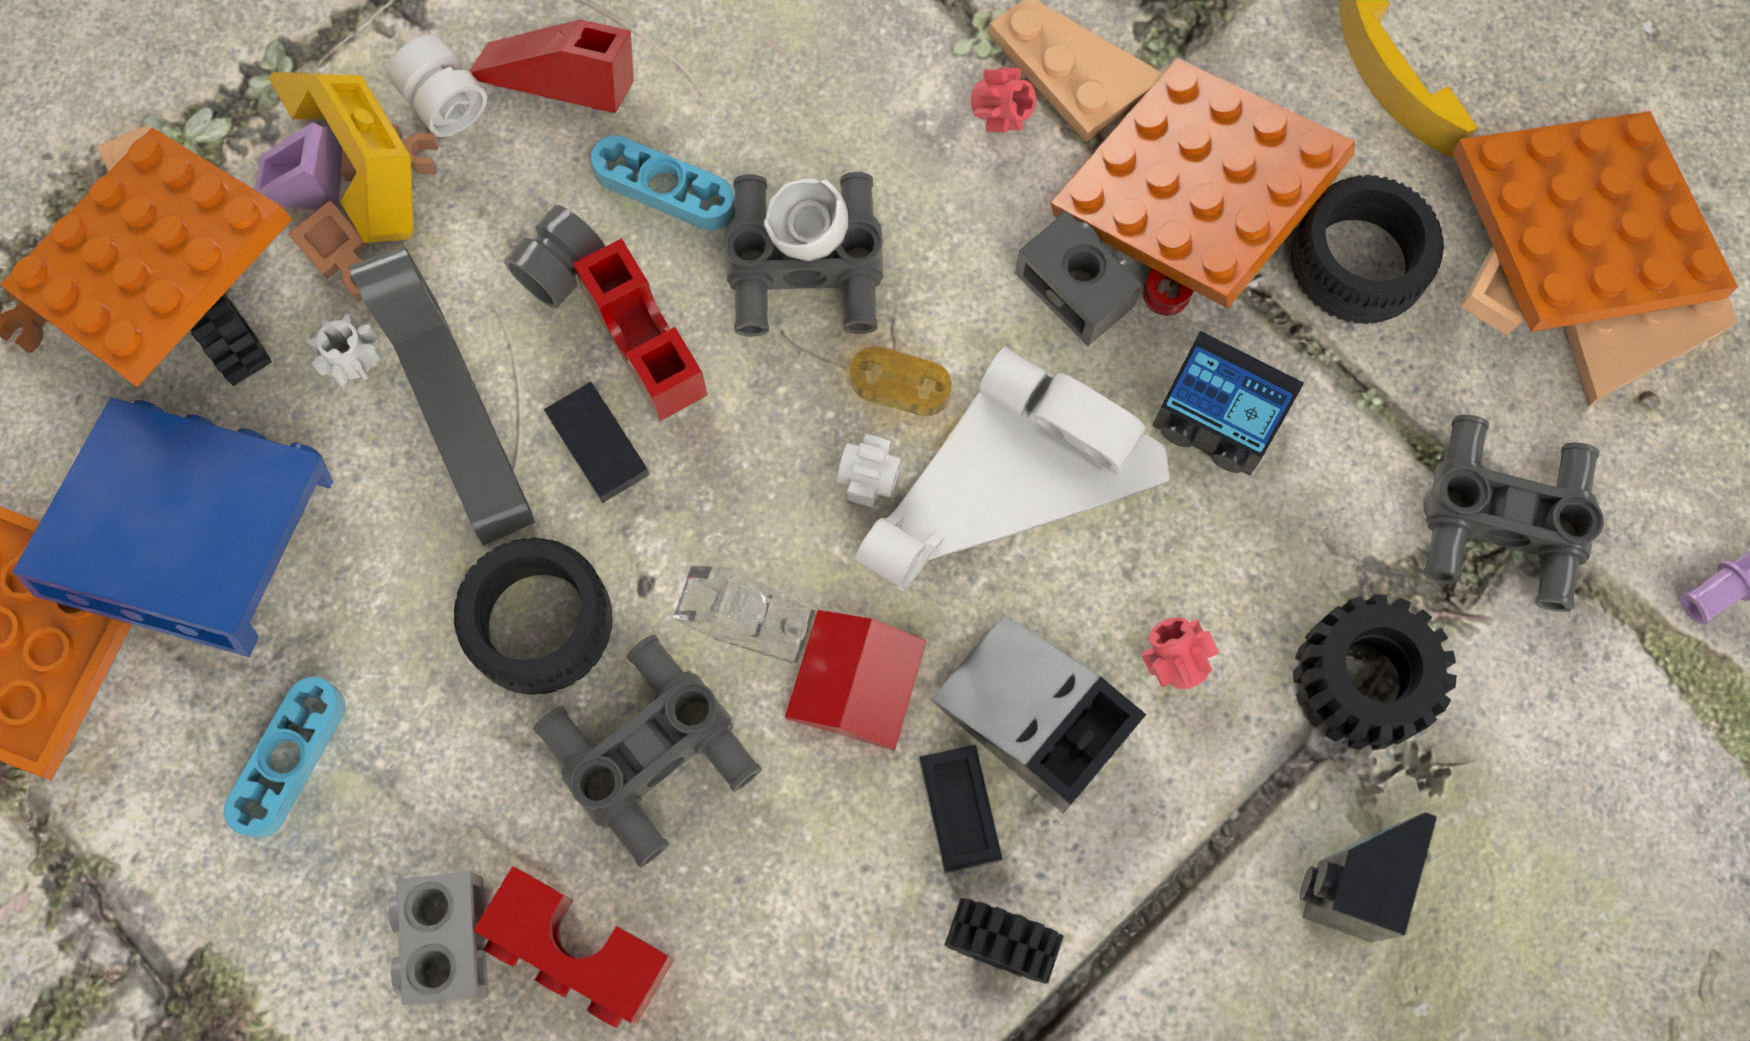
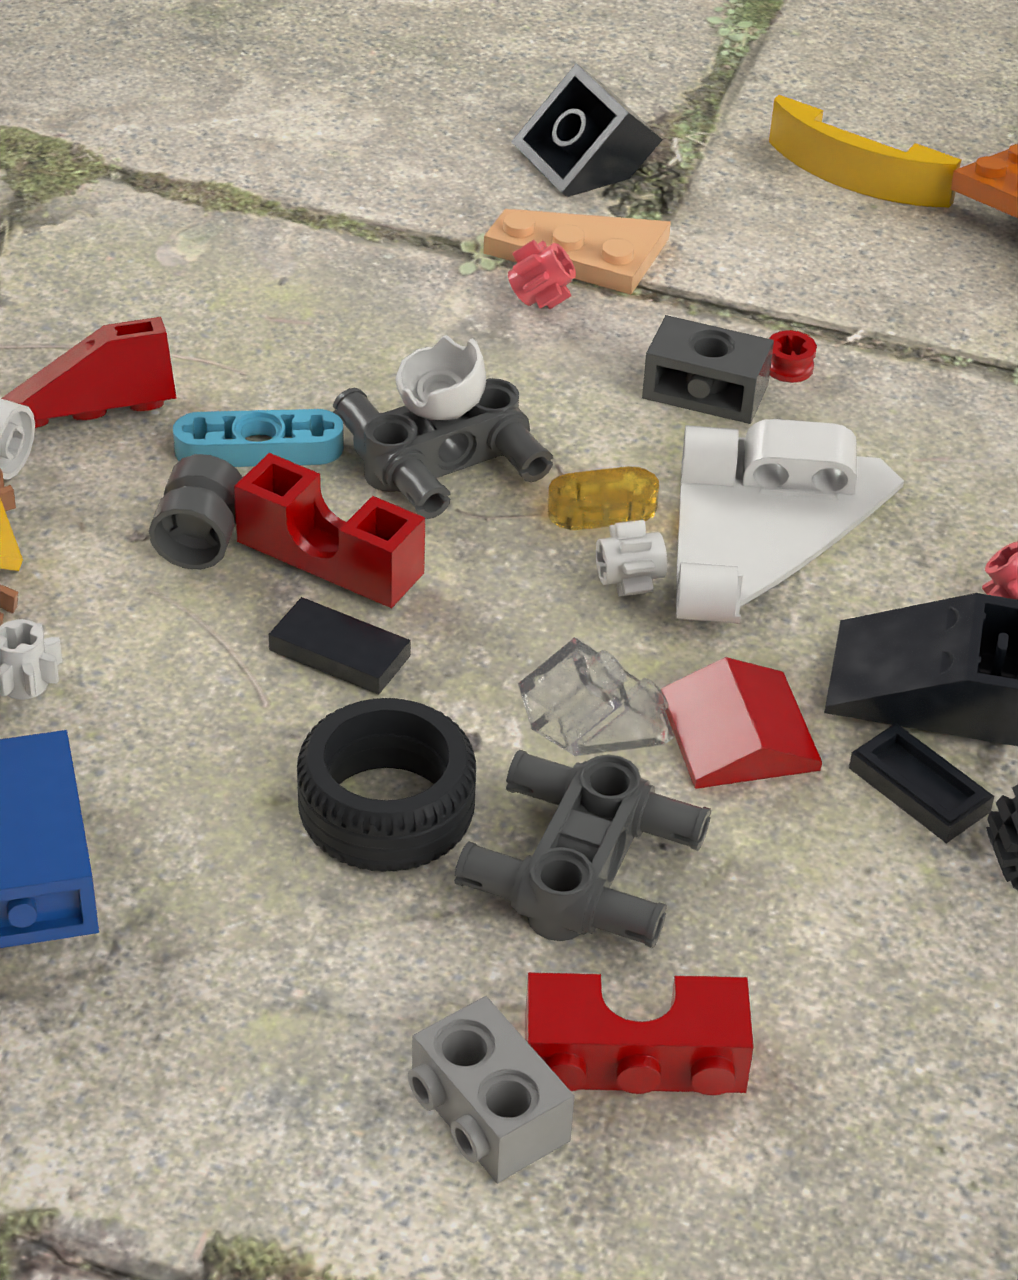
camera: 30 degrees left, 30 degrees down
(260, 762) = (204, 1043): medium azure beam -> none
(445, 392) = (148, 648): dark grey beam -> none
(1204, 180) = (767, 262): orange plate -> none
(1226, 404) = (915, 390): slope -> none
(1389, 207) = (937, 268): black tyre -> none

